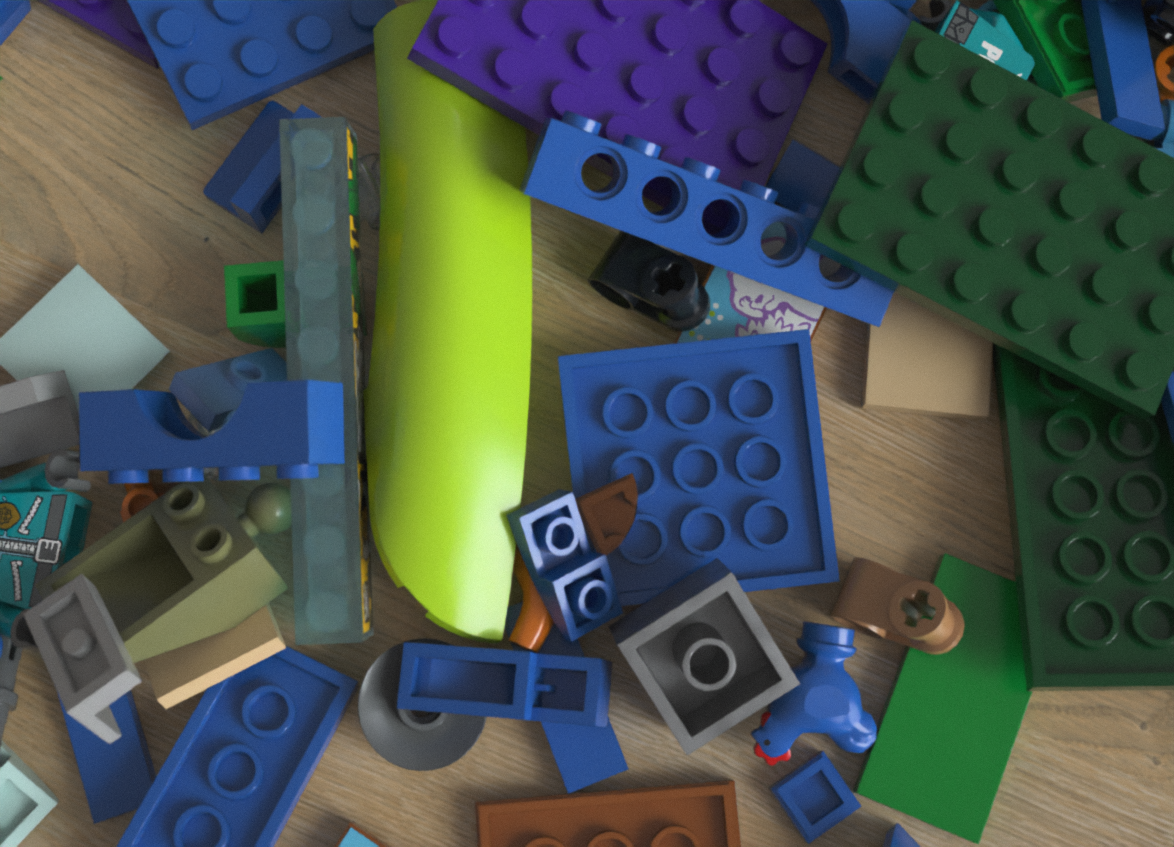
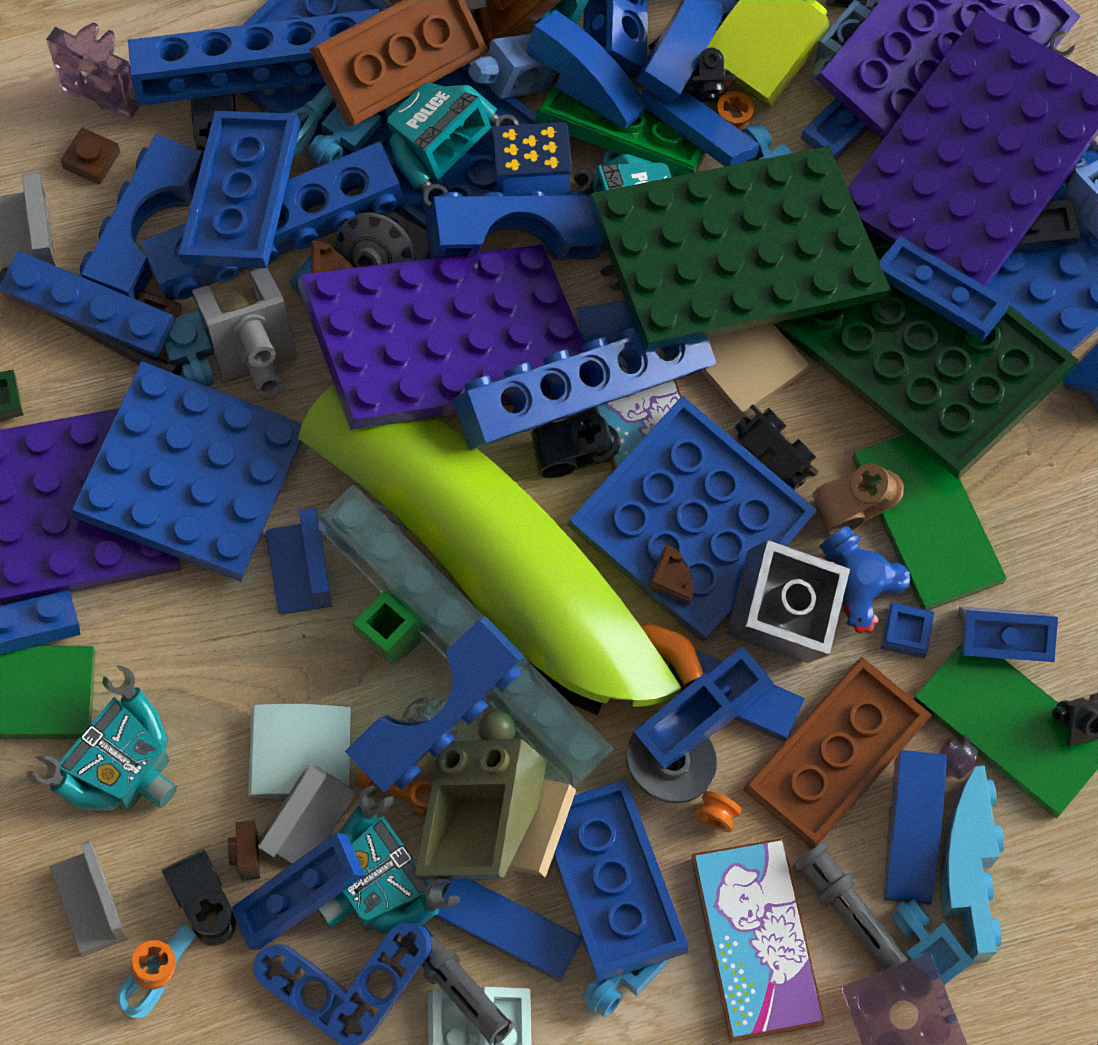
camera: 45 degrees left, 10 degrees down
(83, 654) = (490, 865): light grey panel -> none
(216, 389) = (416, 685): medium blue plate -> none
(418, 804) = (717, 811): none -> orange bush
(565, 571) = (684, 624): blue slope -> none
(870, 497) = (765, 434): none -> black hinge

